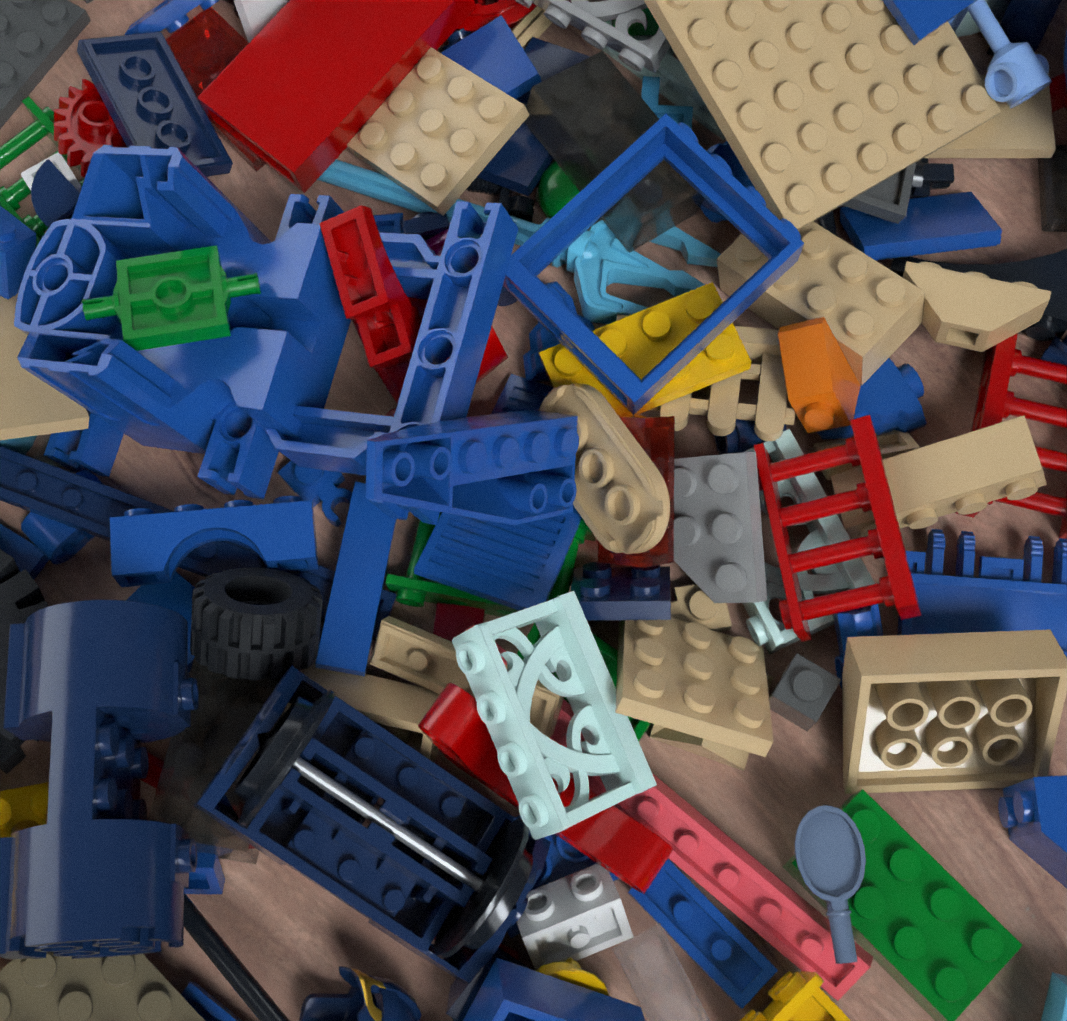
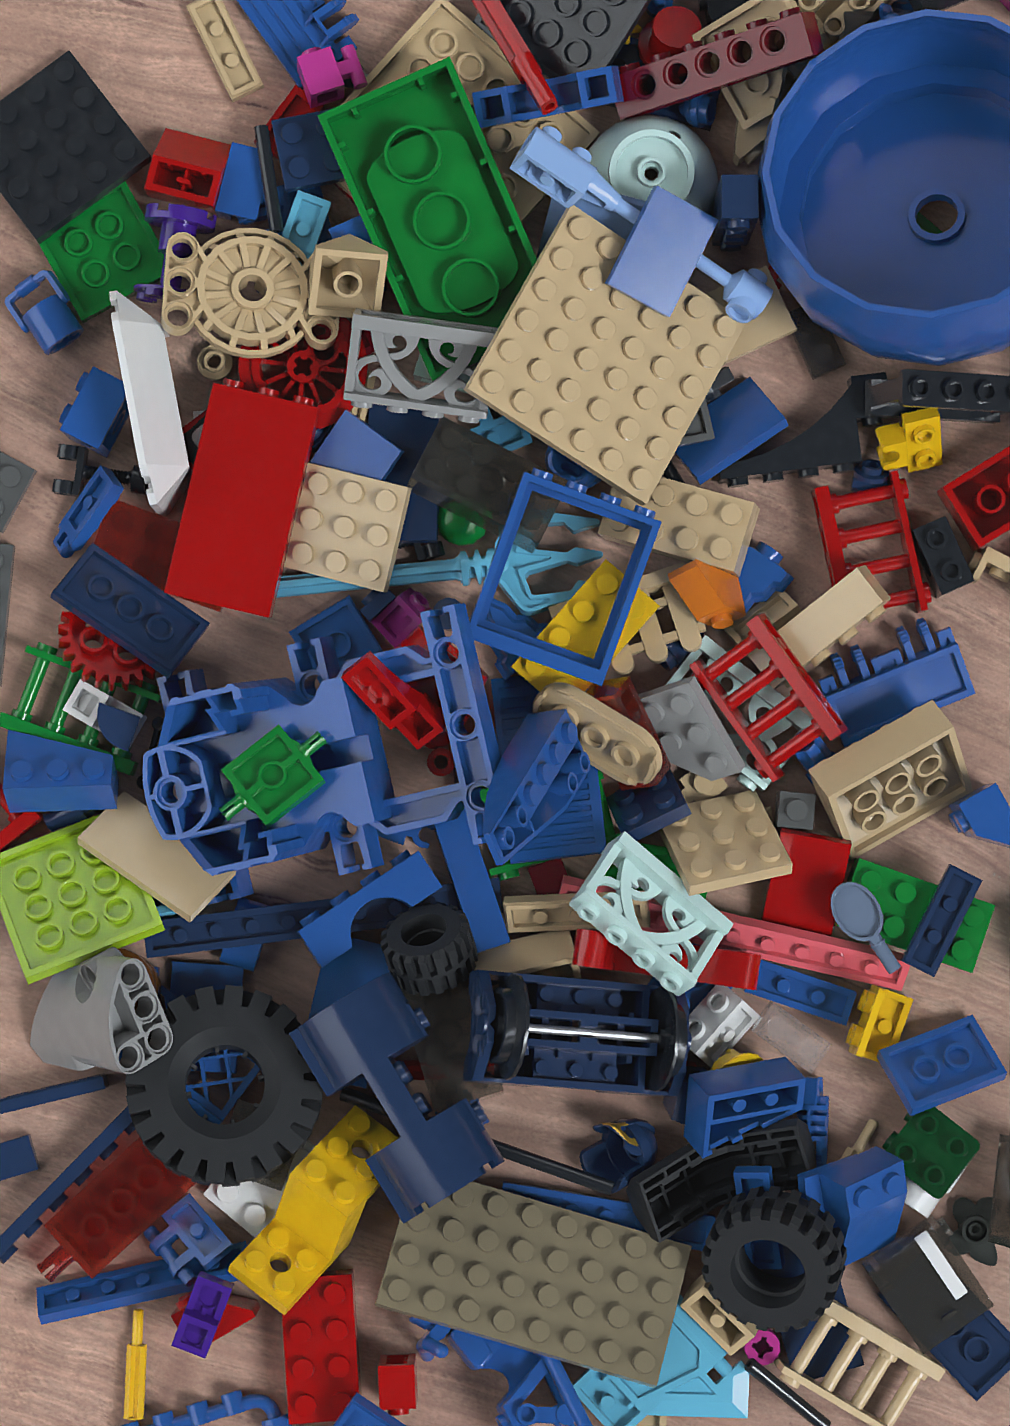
camera: 35 degrees left, 15 degrees up
(765, 798) = (804, 896): none -> red tile
(940, 926) = (941, 920): none -> dark blue tile
(972, 308) = (788, 489): tan slope -> none

